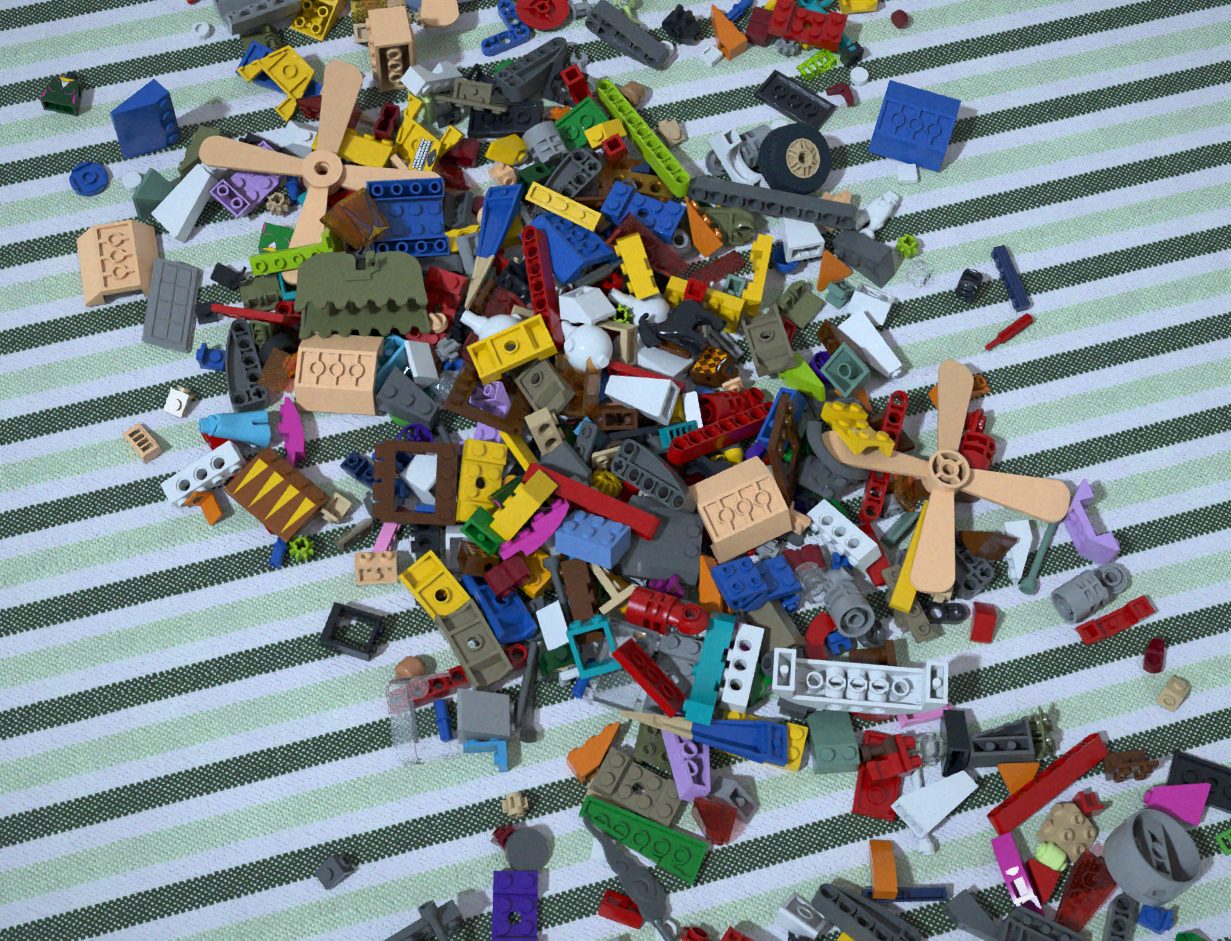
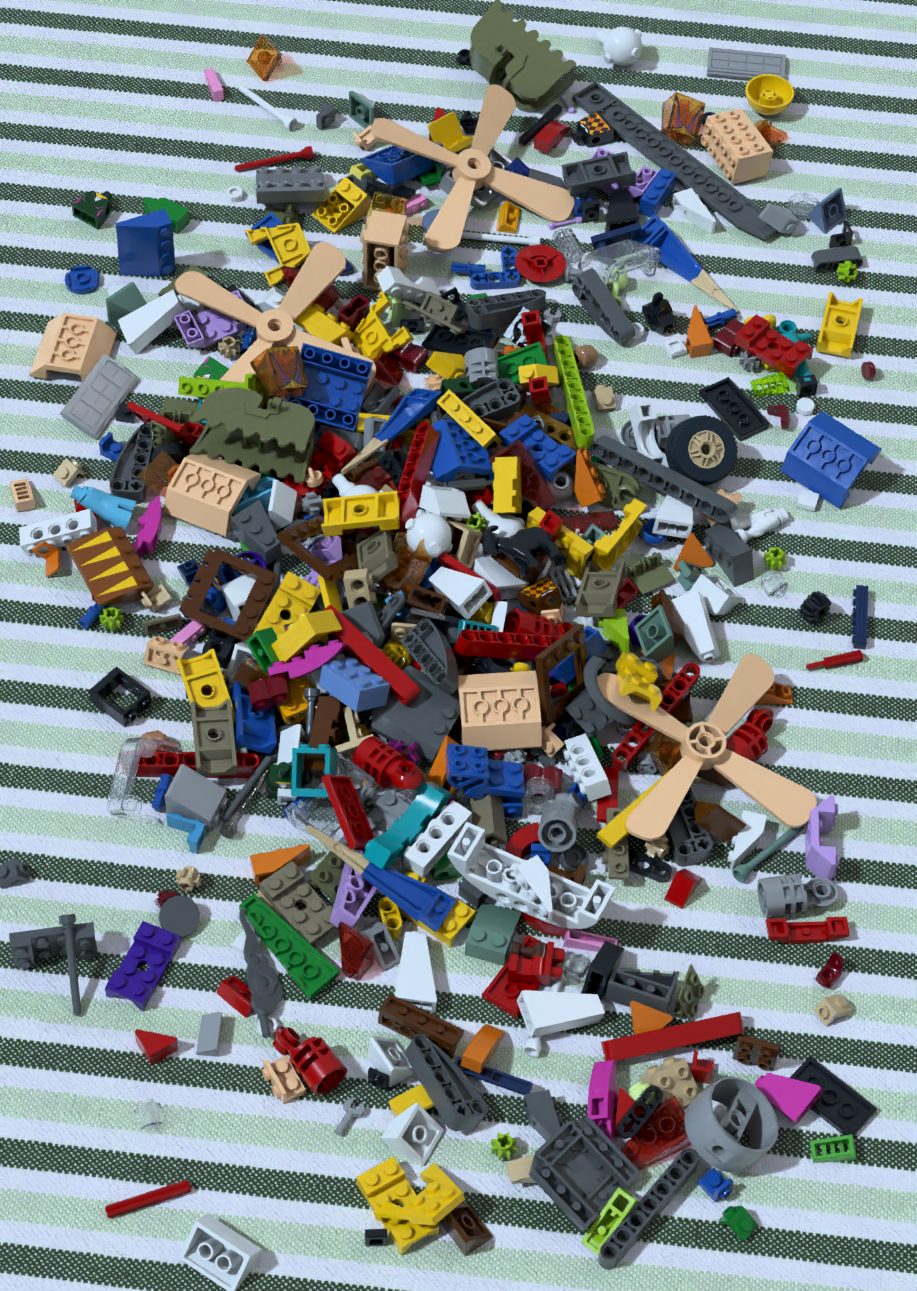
camera: 25 degrees right, 10 degrees down
(140, 73) = (178, 214): none -> green hinge
(227, 276) = (157, 389): black bracket -> none
(424, 154) = (371, 343): slope -> none
(474, 37) = (467, 268): none -> blue axle
(729, 767) = (391, 917): none -> yellow beam
(782, 819) = (415, 974): none -> white slope
(813, 870) = (420, 1023): none -> reddish brown fence
(868, 684) = (535, 879): none -> white slope
(899, 528) = (638, 789): sand green slope -> none
(1067, 872) = (648, 1109): none -> black beam

